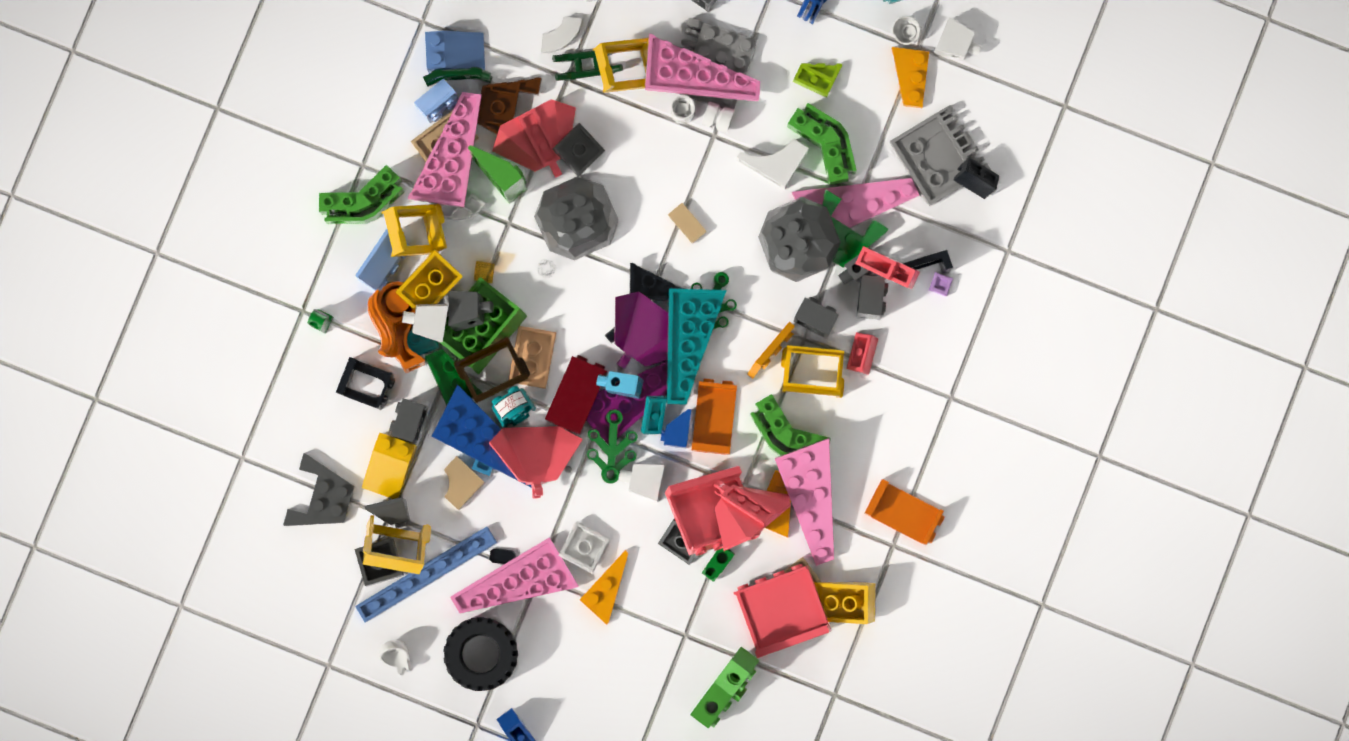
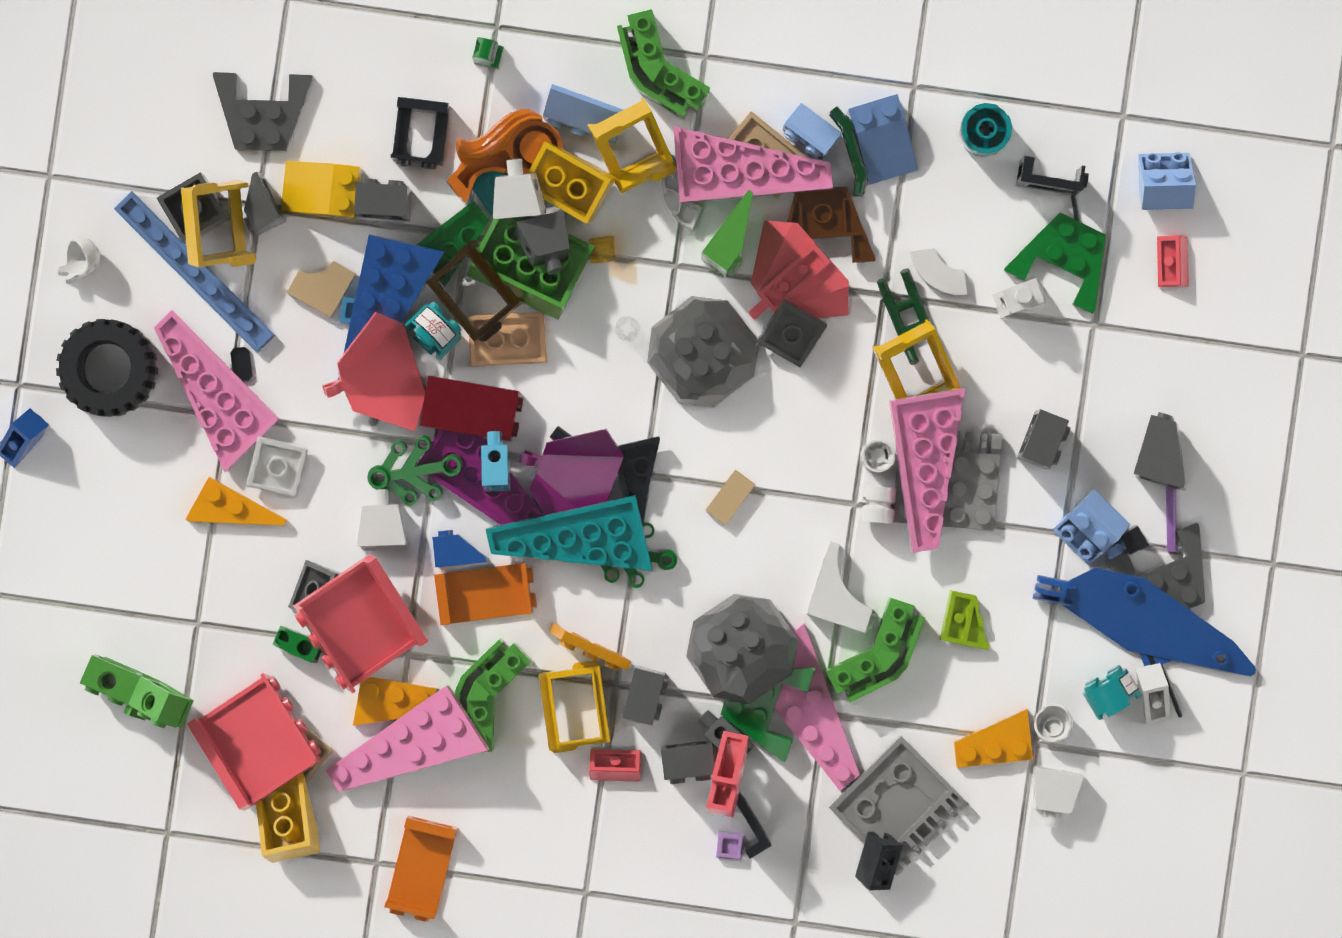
camera: 70 degrees right, 5 degrees up
(653, 415) = (467, 515): teal plate -> none
(746, 512) = (367, 667): coral panel -> none

